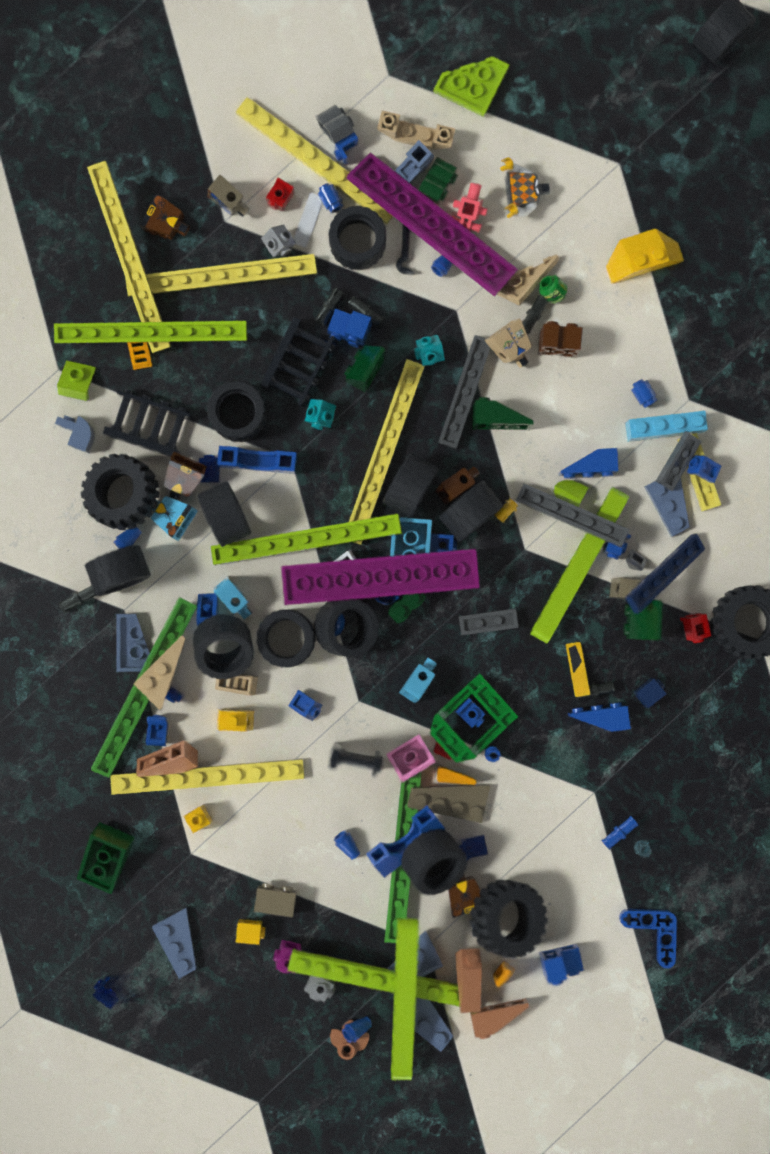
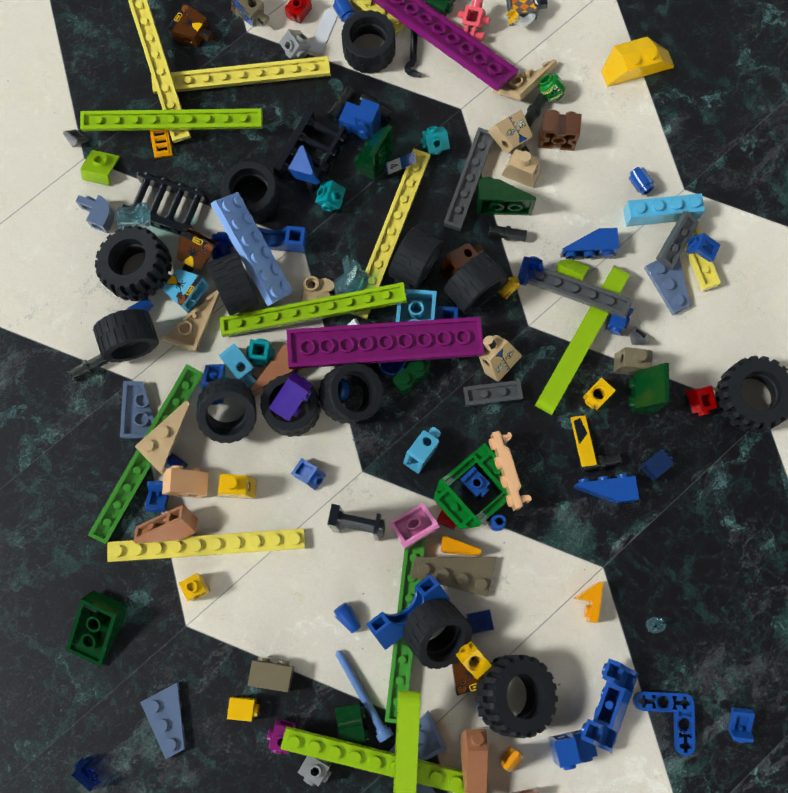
camera: 10 degrees right, 10 degrees down
(48, 347) = (75, 137): none -> flat silver slope
(117, 443) = (133, 216): none -> clear light blue brick
(181, 559) = (191, 330): none -> tan wing
(184, 718) = (185, 482): none -> light nougat brick
(242, 477) = (252, 248): none -> light blue plate
(245, 583) = (255, 348): none -> teal brick
(252, 685) = (252, 452): tan slope -> none
(271, 602) = (276, 368): none -> nougat slope
(288, 634) = (290, 396): none -> dark purple brick
(292, 384) = (302, 167): none -> blue slope
(311, 518) = (321, 289): none -> tan plate
(346, 507) = (353, 279): none -> clear light blue brick
(352, 944) = (351, 725): none -> dark green brick
(383, 950) = (383, 732): none -> medium blue piece
(393, 375) = (400, 163): none -> sticker
(441, 266) = (447, 67): blue cone -> none
(469, 893) = (478, 665): none -> yellow brick
(494, 586) = (498, 357): none -> tan torso
(504, 451) = (507, 233): none -> pearl dark grey pin
(504, 709) = (509, 474): none -> light nougat piece
(520, 381) = (522, 168): none -> tan torso
(523, 496) = (527, 269): none -> clear blue bracket
(583, 821) = (593, 596): none -> light orange slope
(598, 926) = (612, 706): none -> blue bracket
(601, 618) = (600, 386): none -> yellow brick
(620, 832) = (631, 608): blue pin -> none
(665, 573) = (669, 343): dark blue plate -> none
(719, 939) = (741, 724): none -> blue bracket

